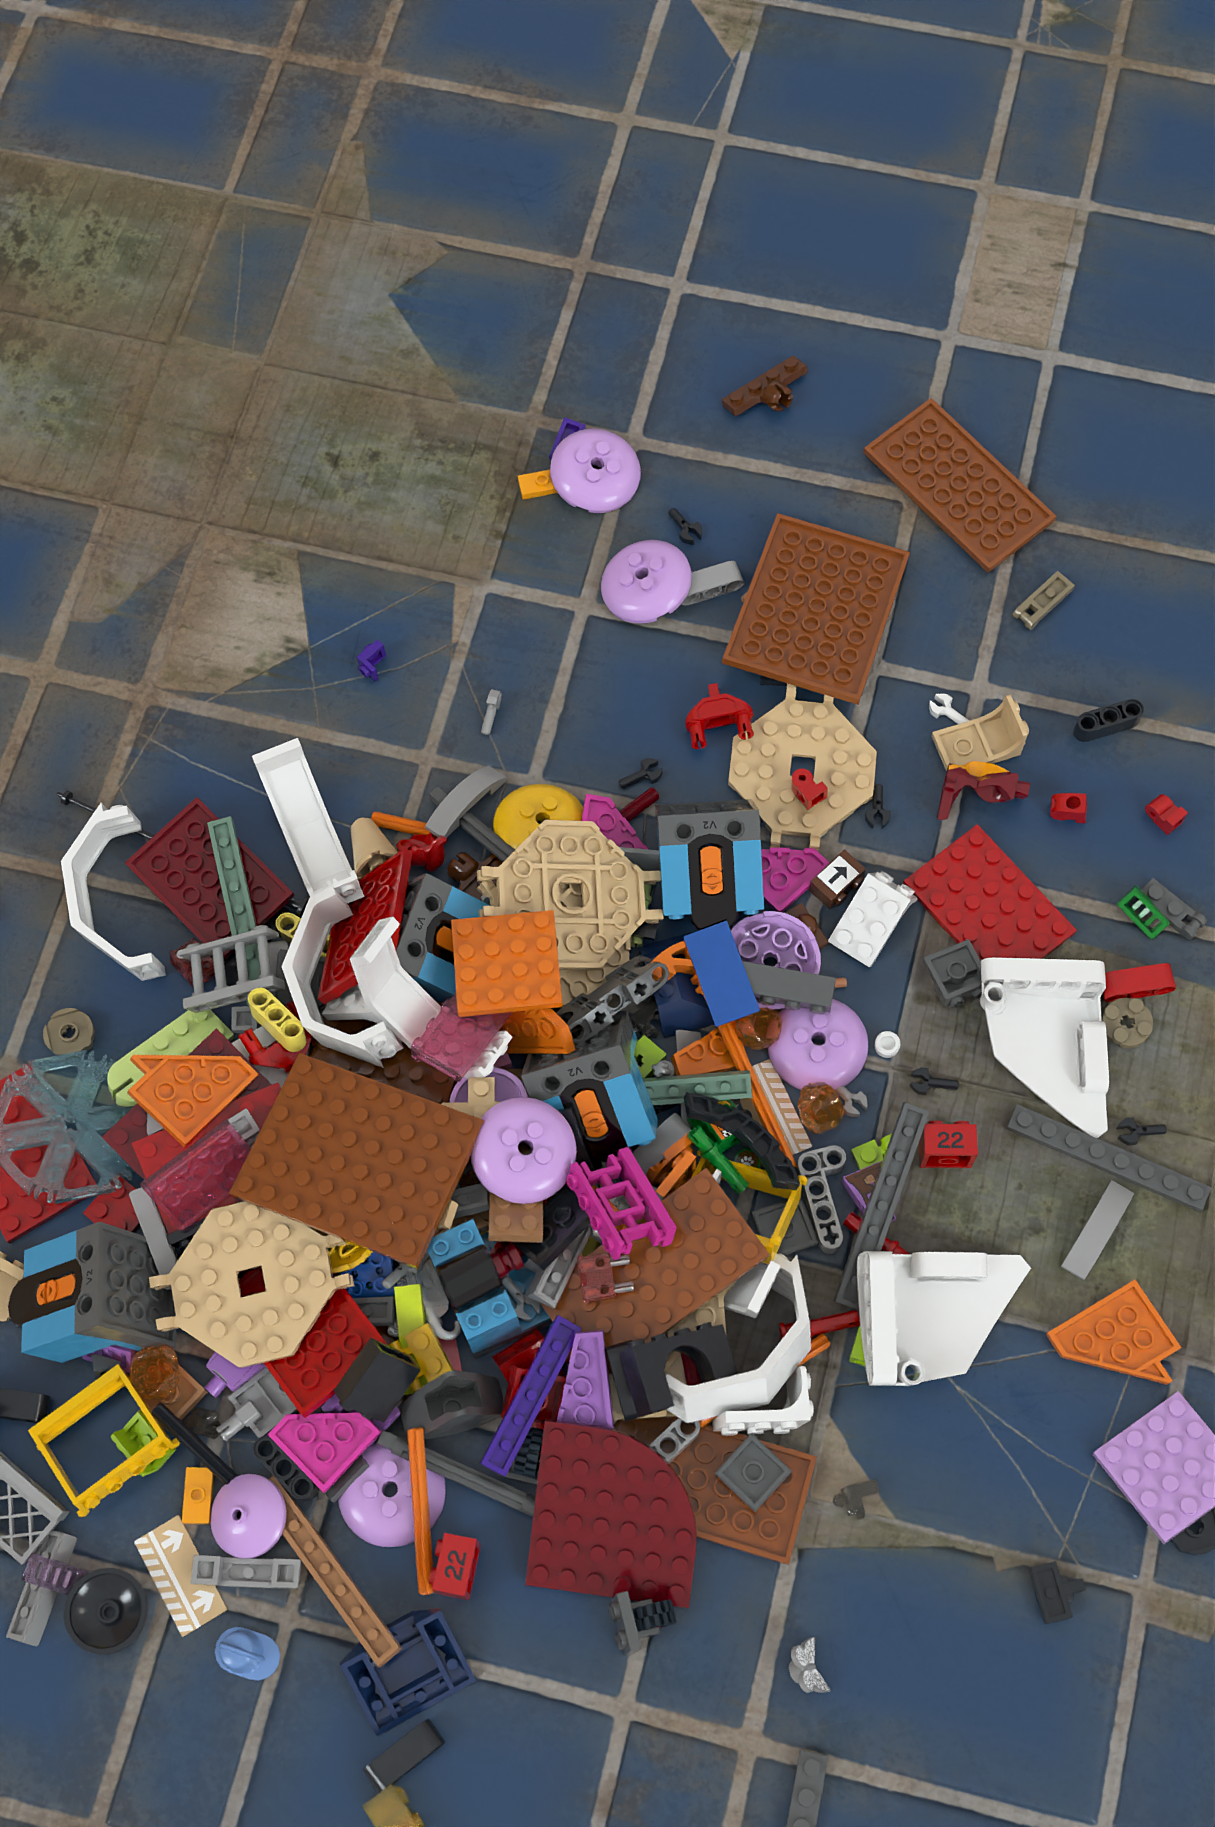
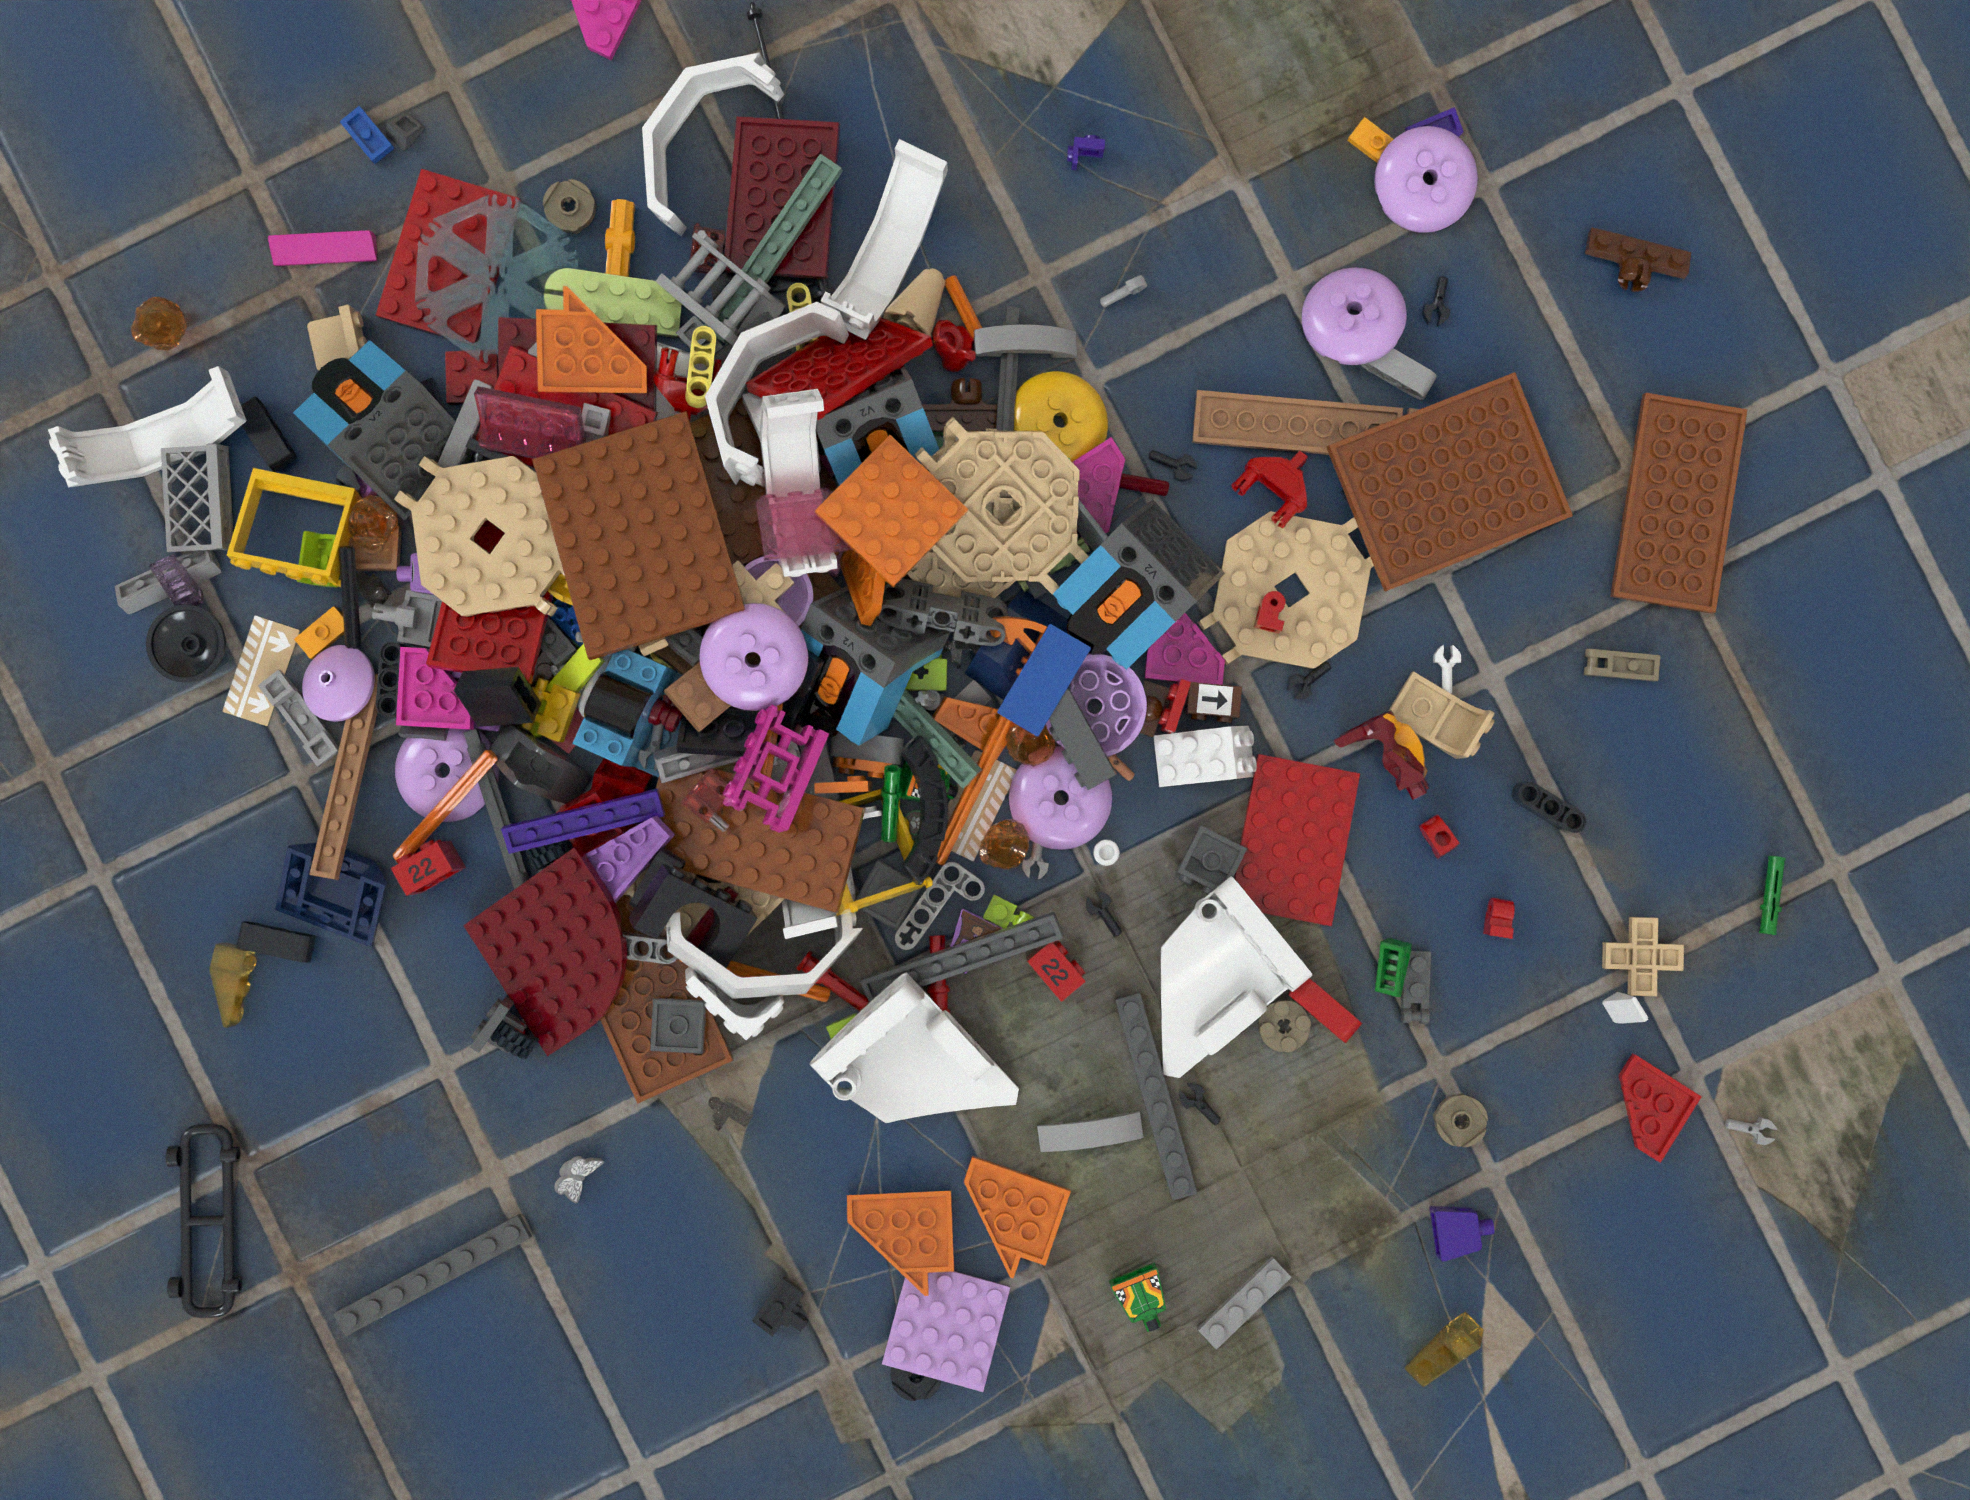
camera: 45 degrees right, 20 degrees up
(125, 1014) = (620, 238): none -> light orange piece
(247, 1653) = (250, 768): medium blue piece -> none
(675, 683) = (1281, 421): none -> medium nougat plate
(819, 904) = (1177, 696): none -> red plate
(1068, 1432) = (908, 1231): none -> orange wing

